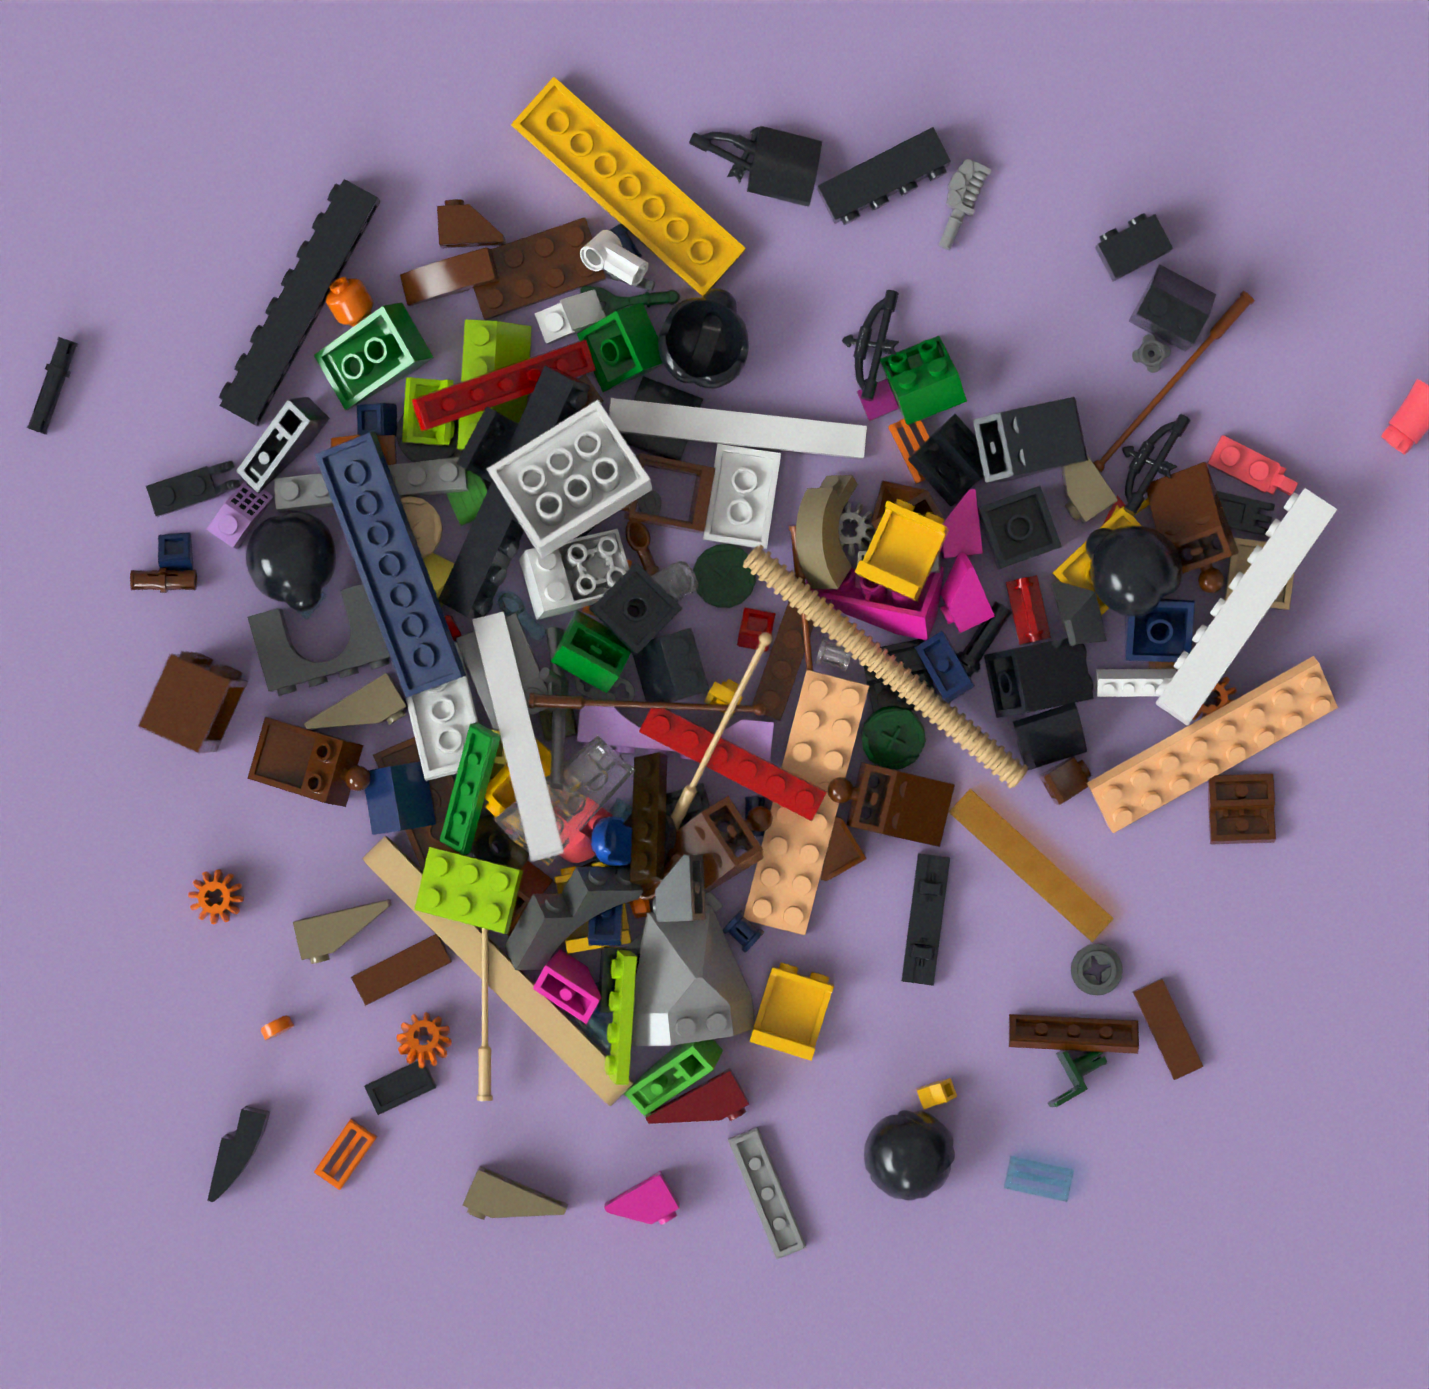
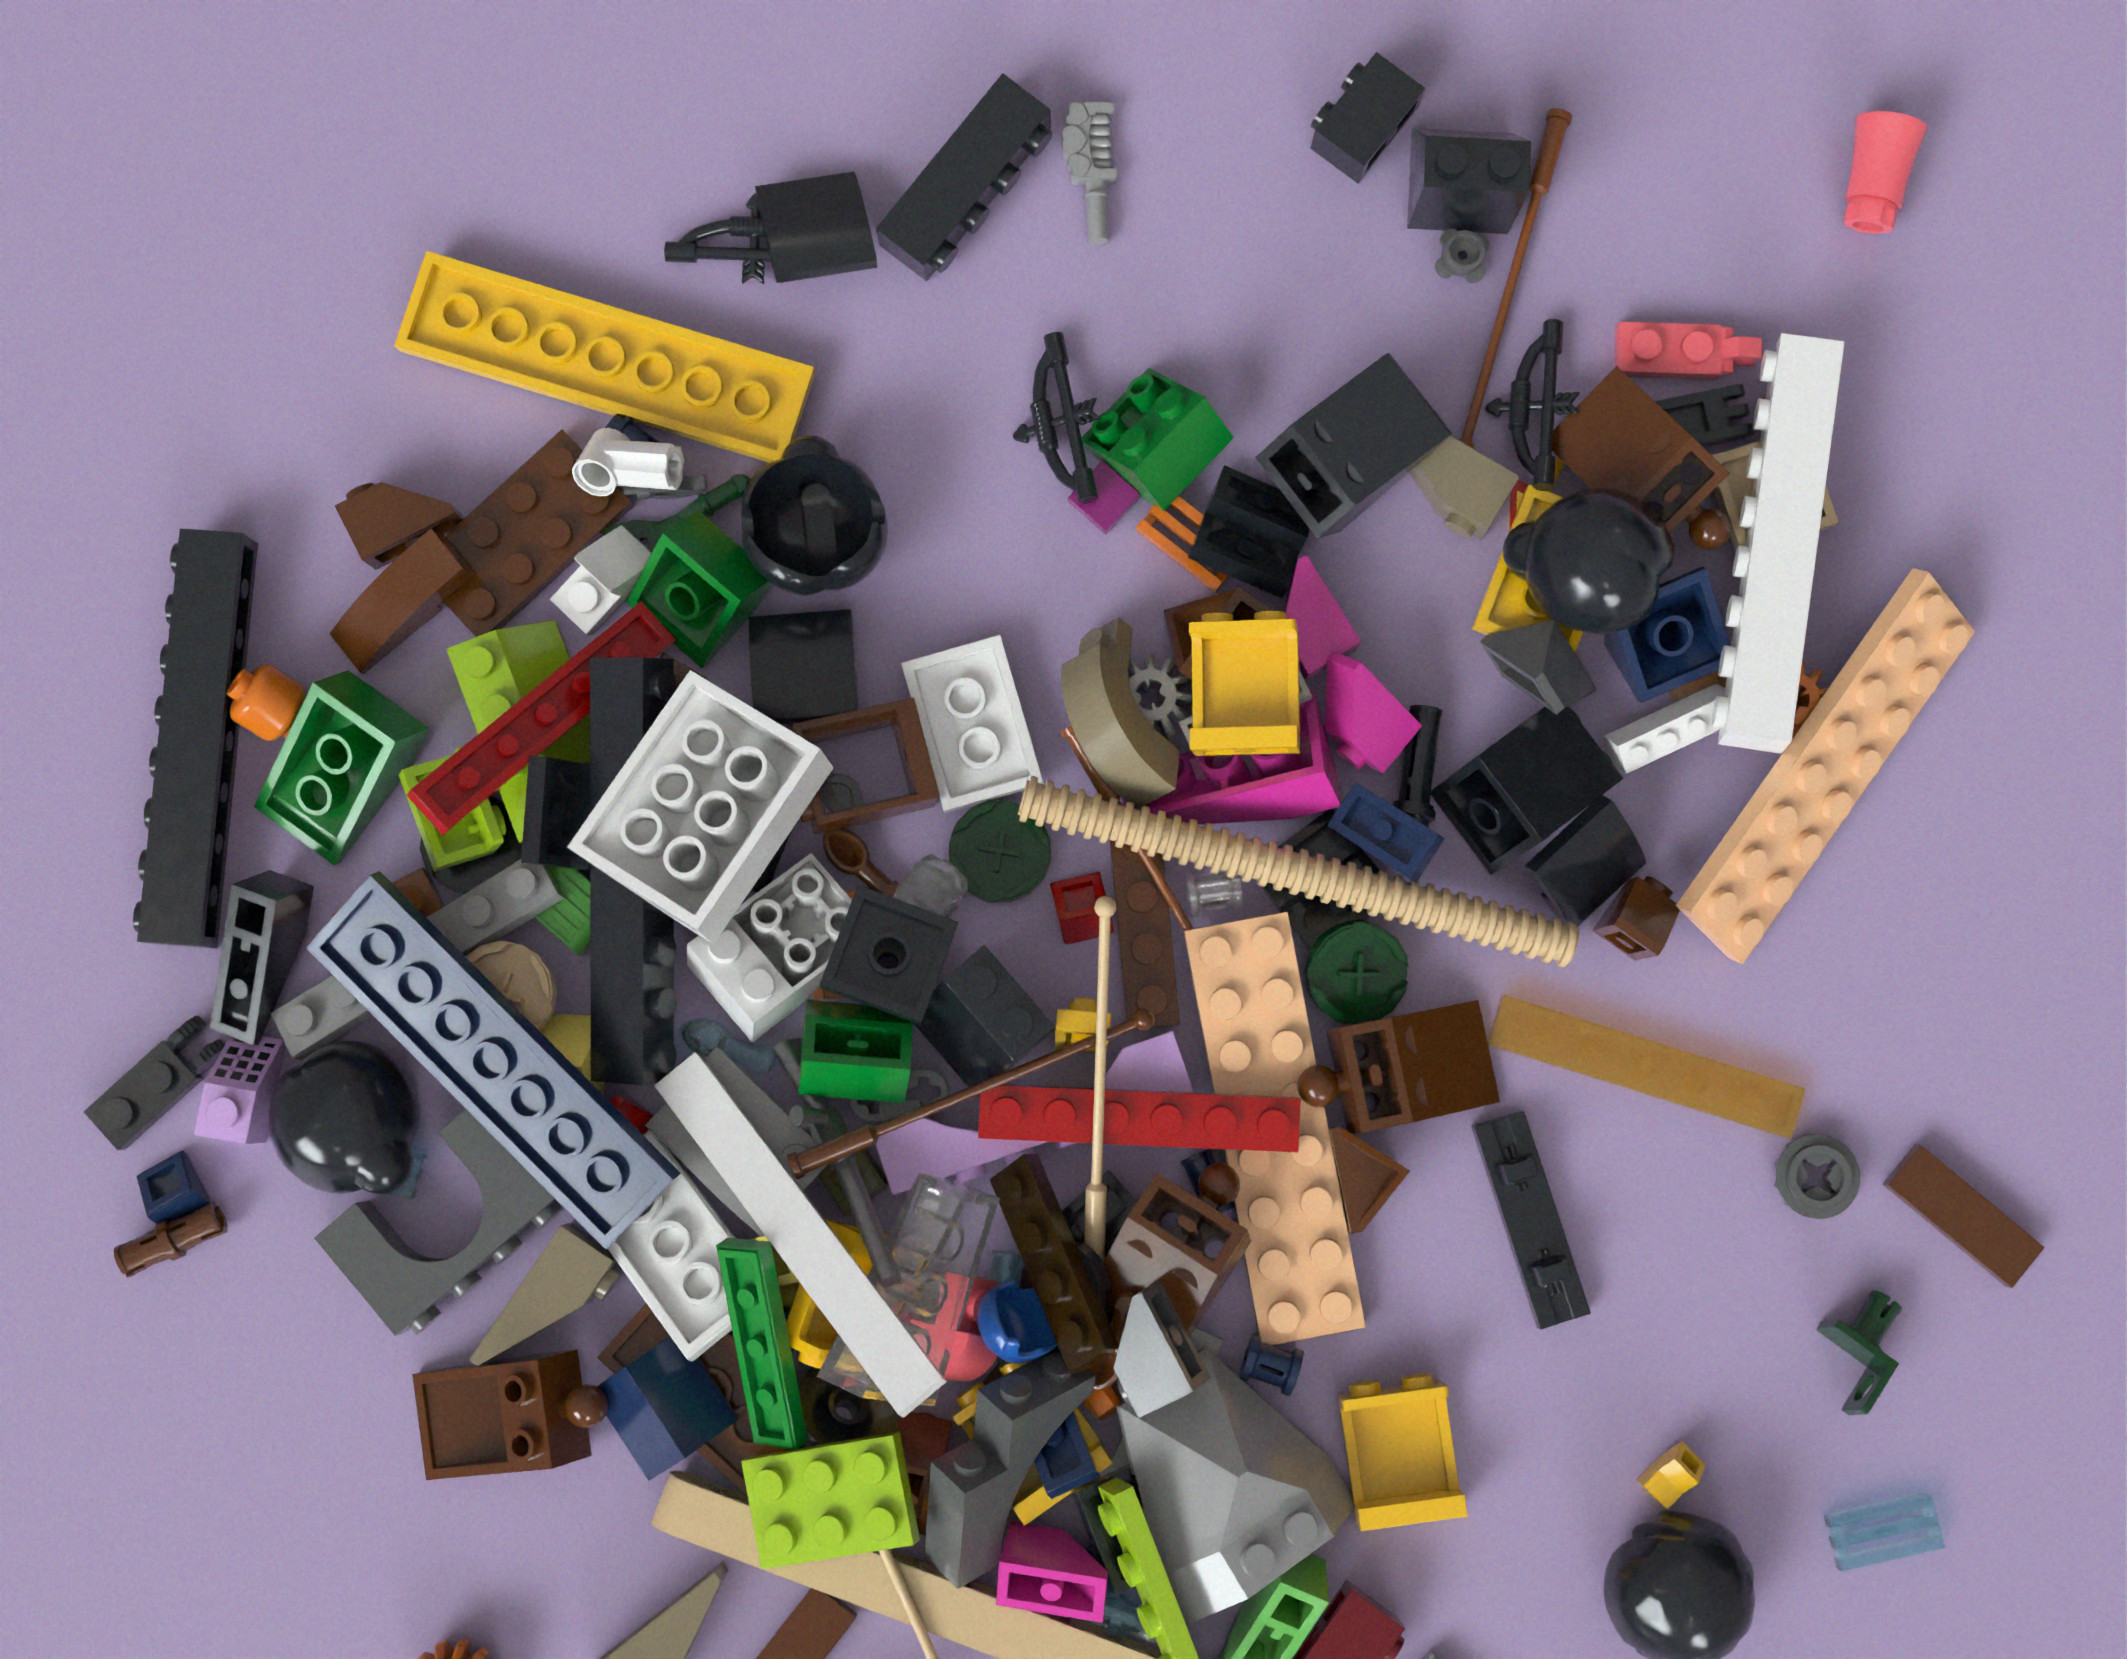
camera: 25 degrees left, 5 degrees down
(193, 701) = (275, 1410): reddish brown hose -> none
(377, 418) = (389, 850): dark blue slope -> none
(738, 428) = (920, 627): white tile -> none
(1019, 527) = (1396, 581): black brick -> none
(1028, 609) = (1462, 697): red hinge -> none
(1073, 1033) = (1831, 1288): reddish brown tile -> none
(1241, 809) = (1910, 842): reddish brown slope -> none

